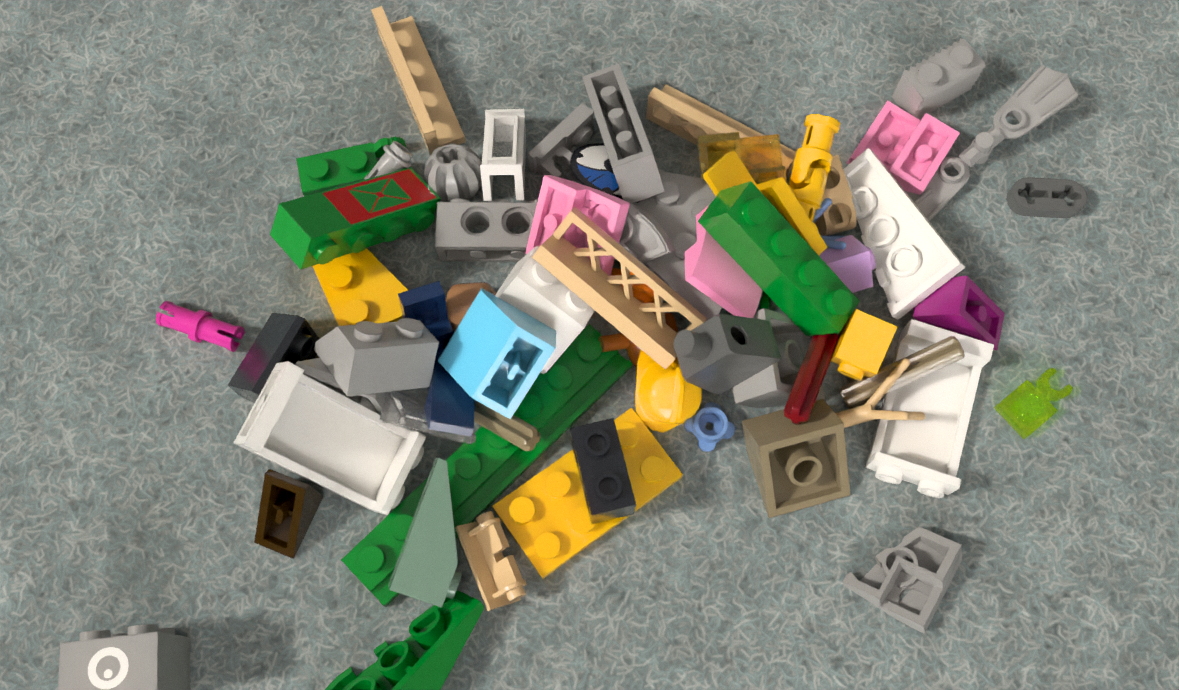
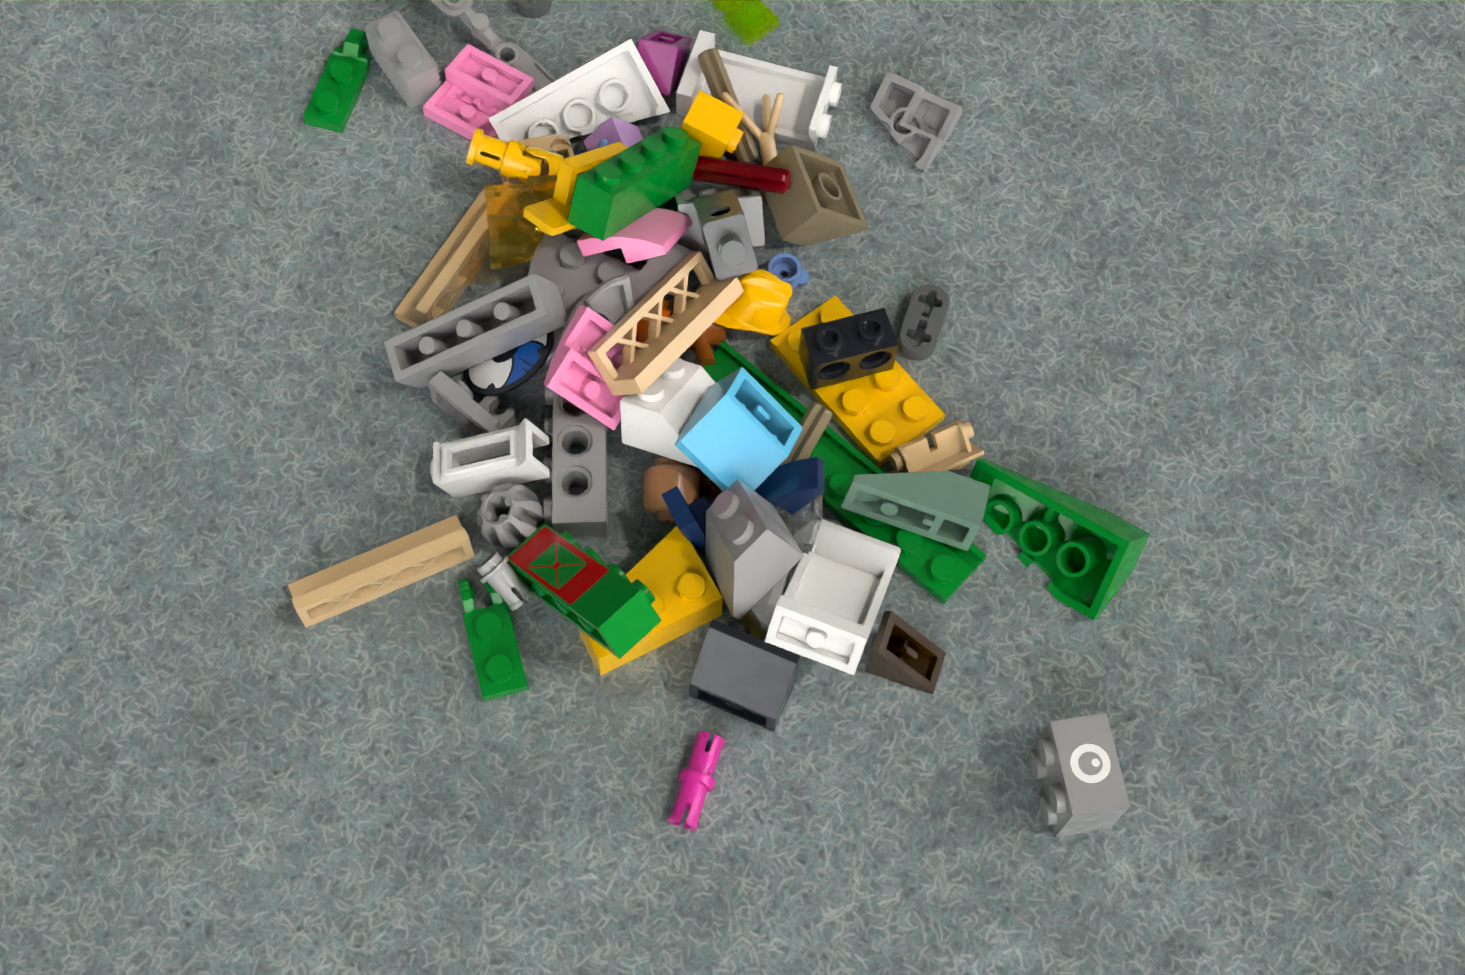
camera: 95 degrees left, 5 degrees down
(656, 554) = (914, 319): none -> dark grey beam
(906, 34) = (340, 84): none -> green hinge

